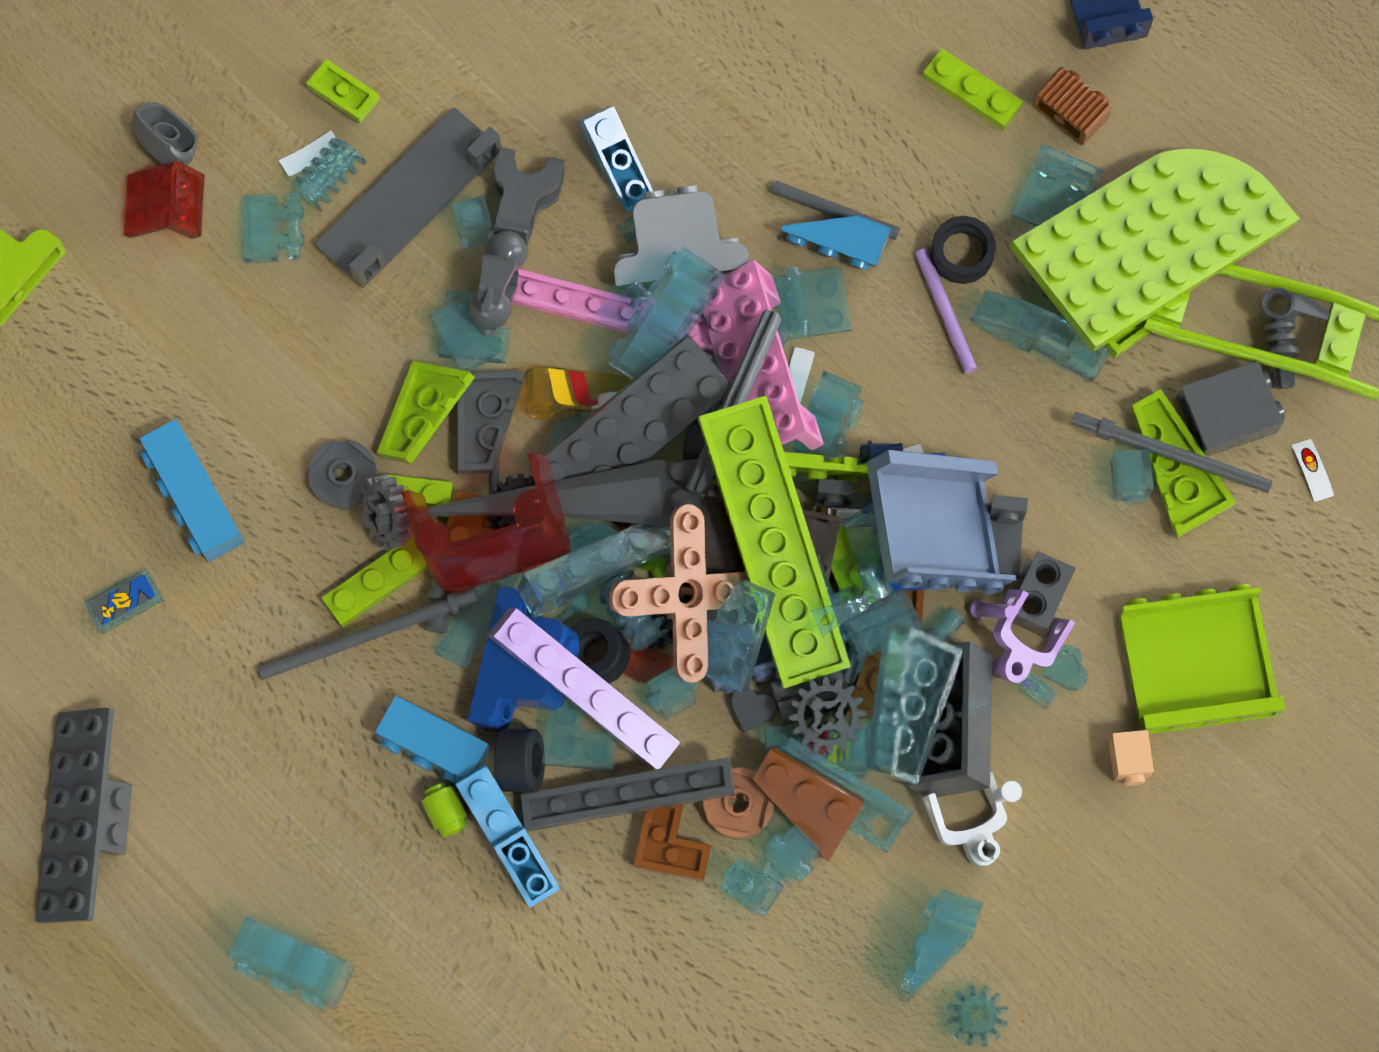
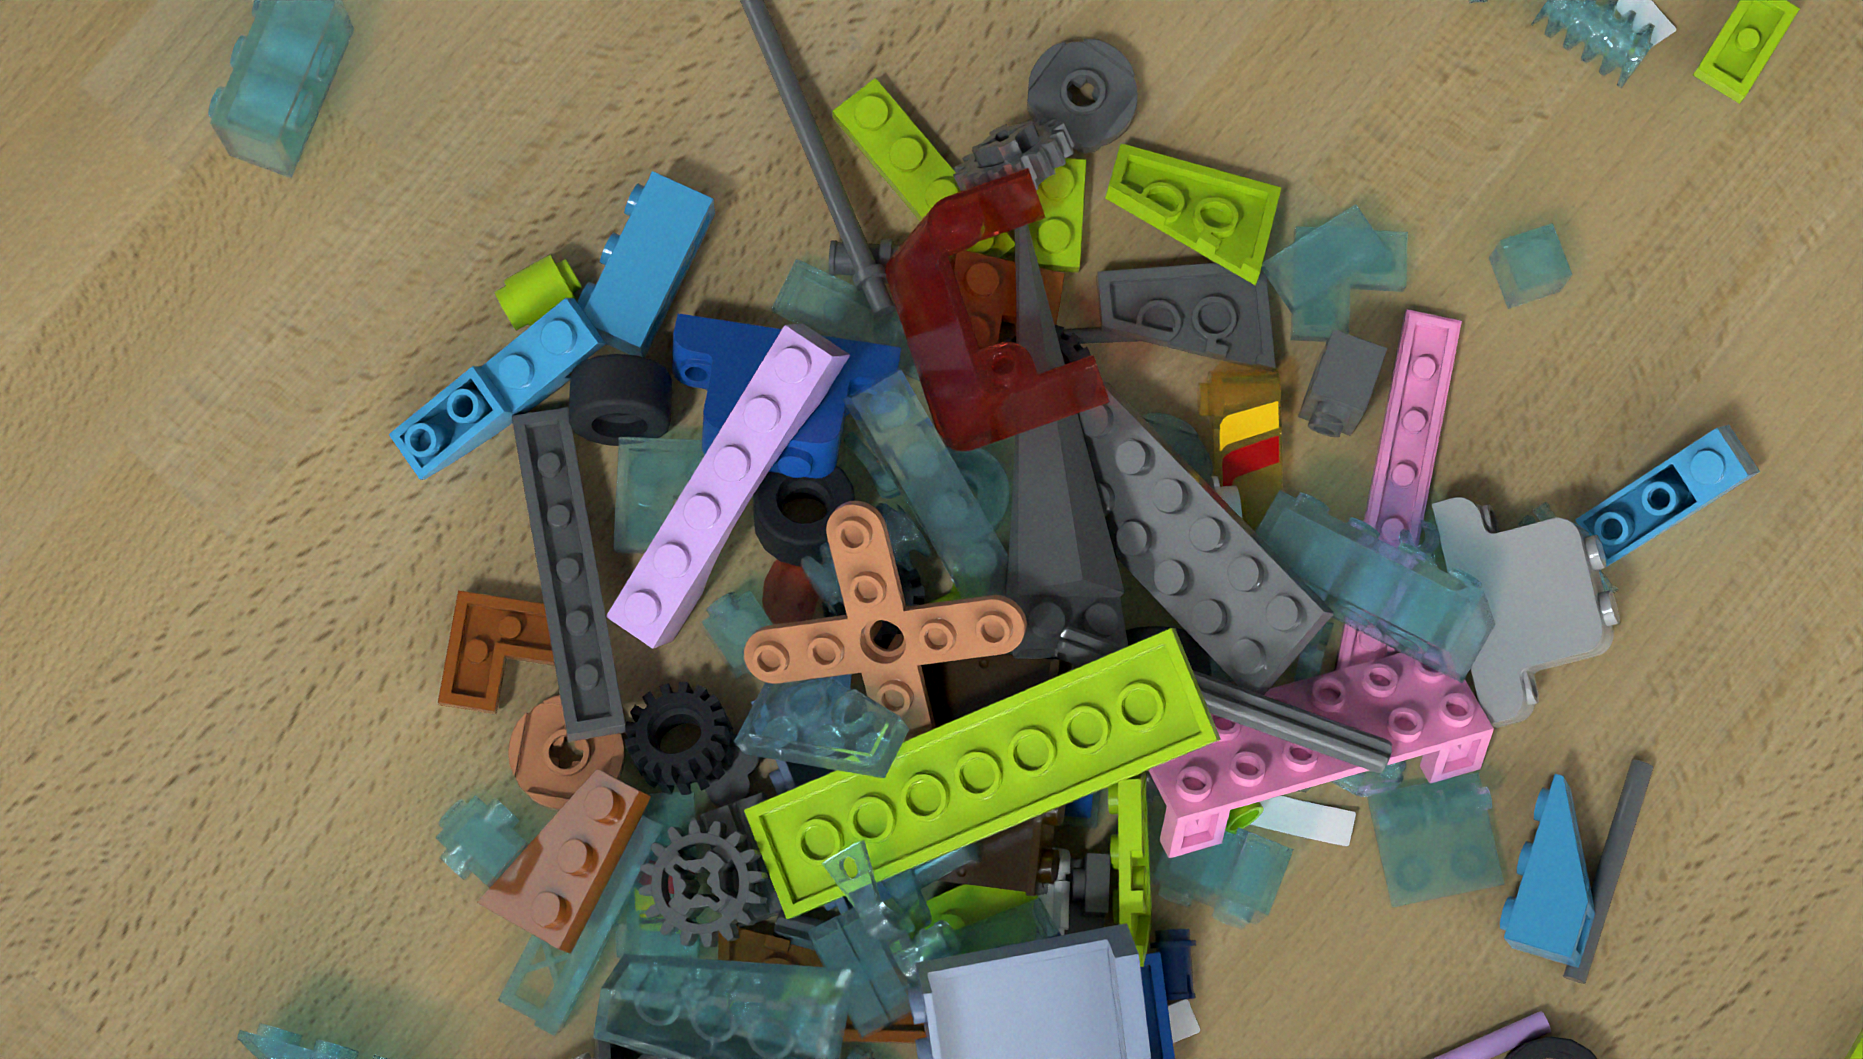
camera: 80 degrees right, 5 degrees up
(409, 196) = (1569, 162): dark grey bracket -> none
(507, 250) = (1520, 329): dark grey piece -> none
(540, 331) = (1341, 384): none -> dark grey brick
(714, 731) = (666, 713): none -> black tyre
(751, 887) = (426, 777): clear light blue brick -> none

